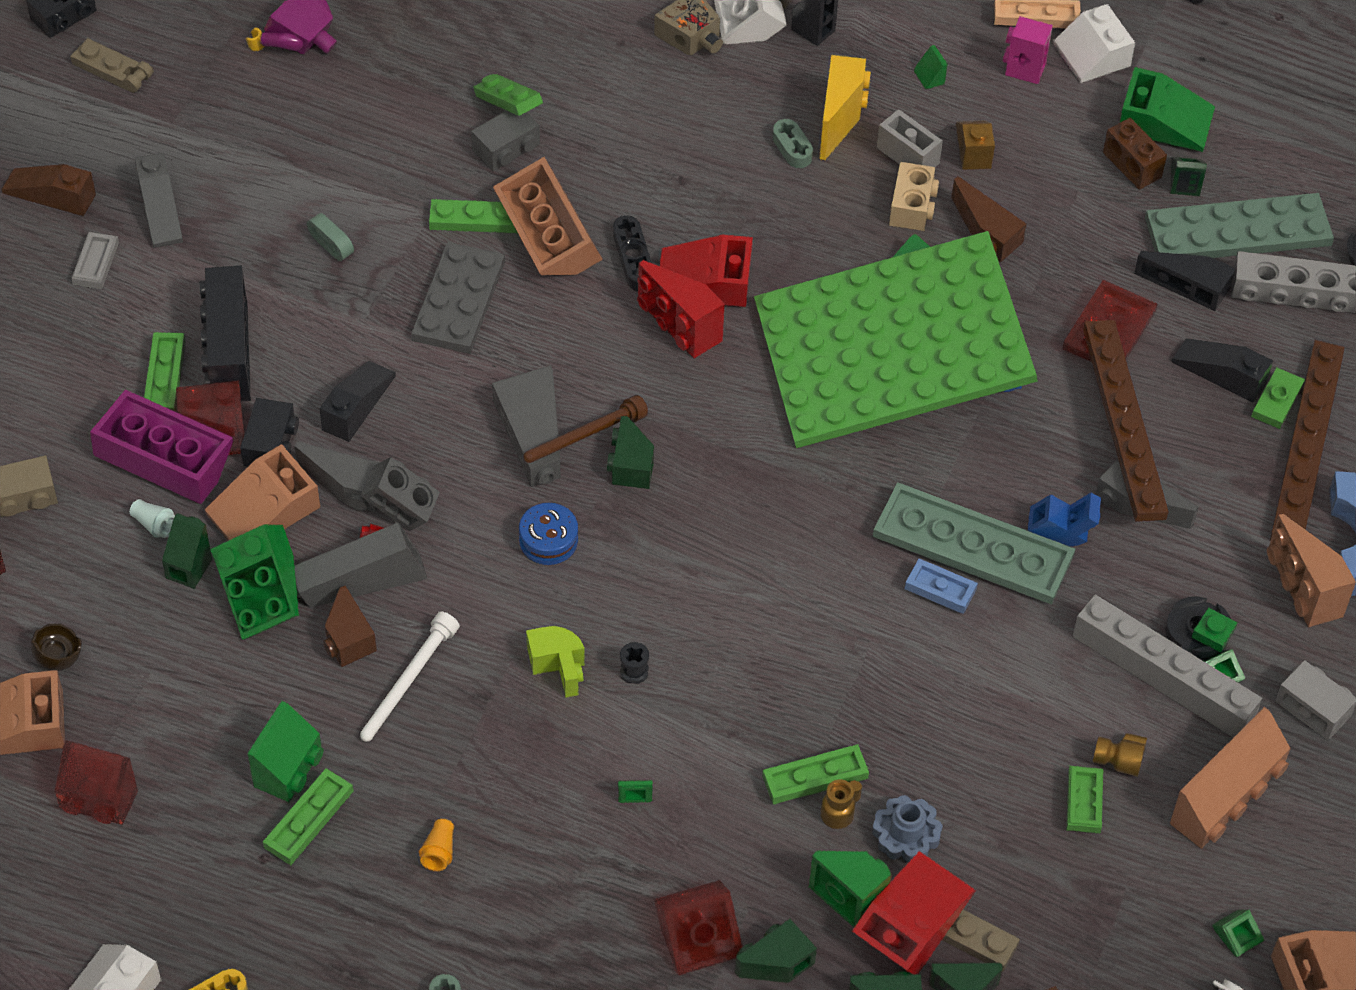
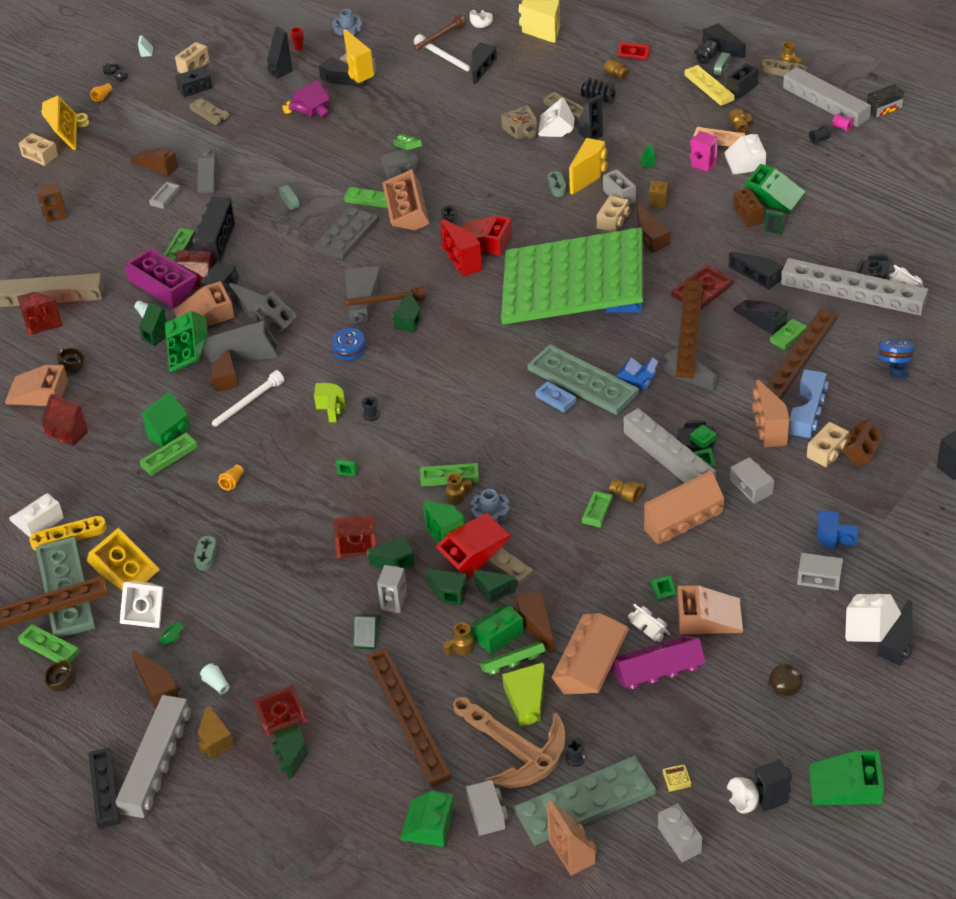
camera: 20 degrees right, 10 degrees down
(354, 400) = (269, 271): black slope -> none
(1241, 226) = (812, 250): sand green plate -> none

